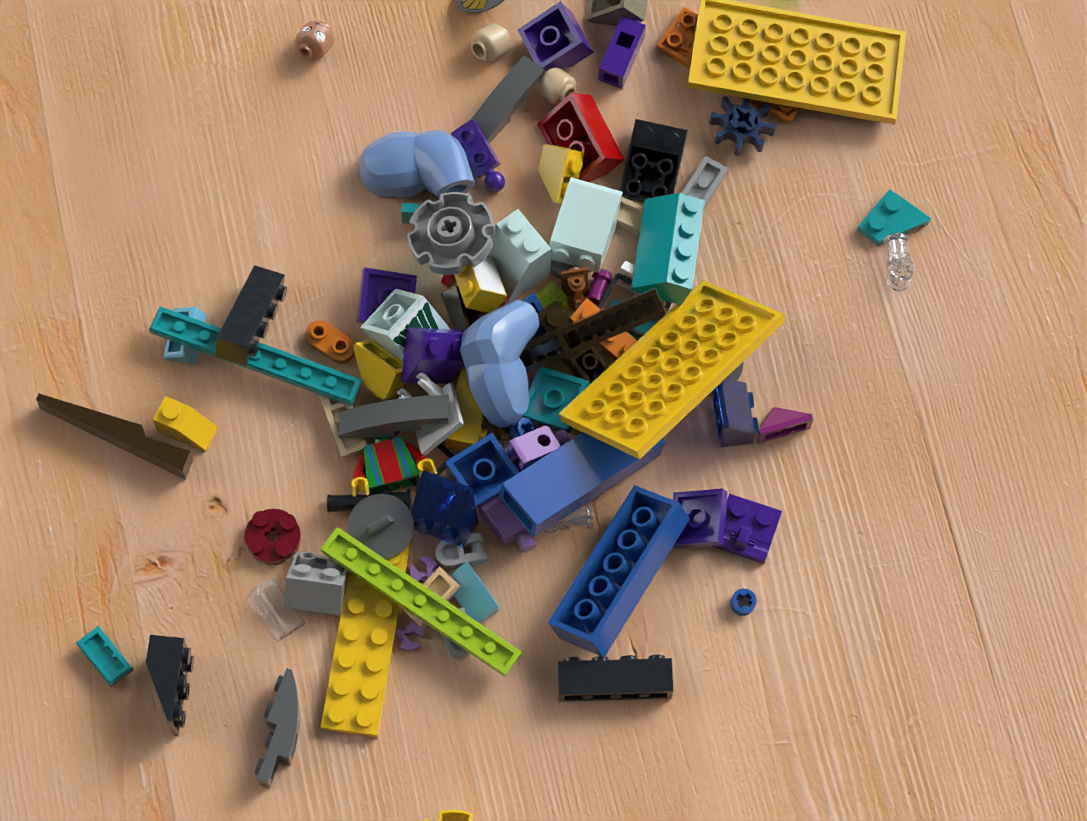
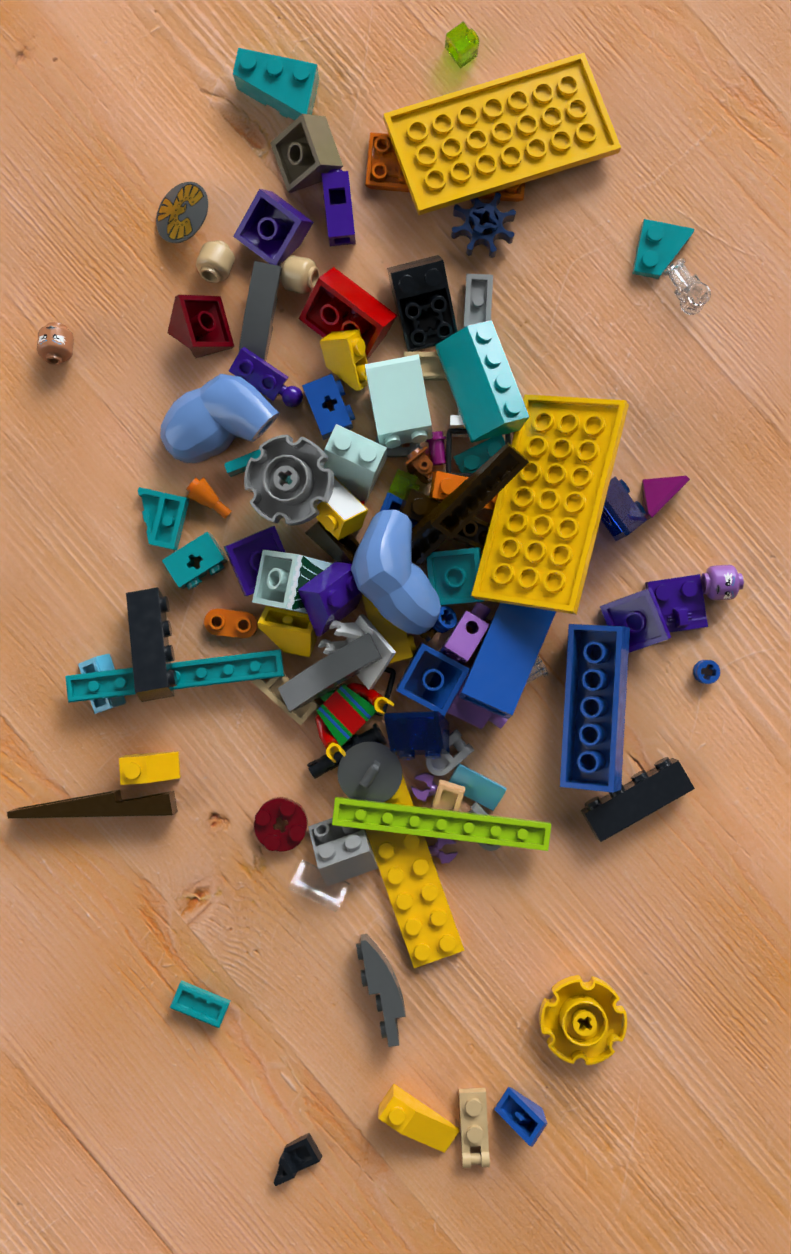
camera: 30 degrees left, 20 degrees up
(168, 665) = (266, 1004): black slope -> none
(318, 265) = (180, 561): none -> teal brick
(323, 224) = (164, 517): none -> teal wing
(369, 221) = (203, 493): none -> orange cone
(448, 85) = (200, 324): none -> dark red slope
(523, 190) = (322, 391): none -> blue brick
(797, 526) = (722, 582): none -> medium lavender head

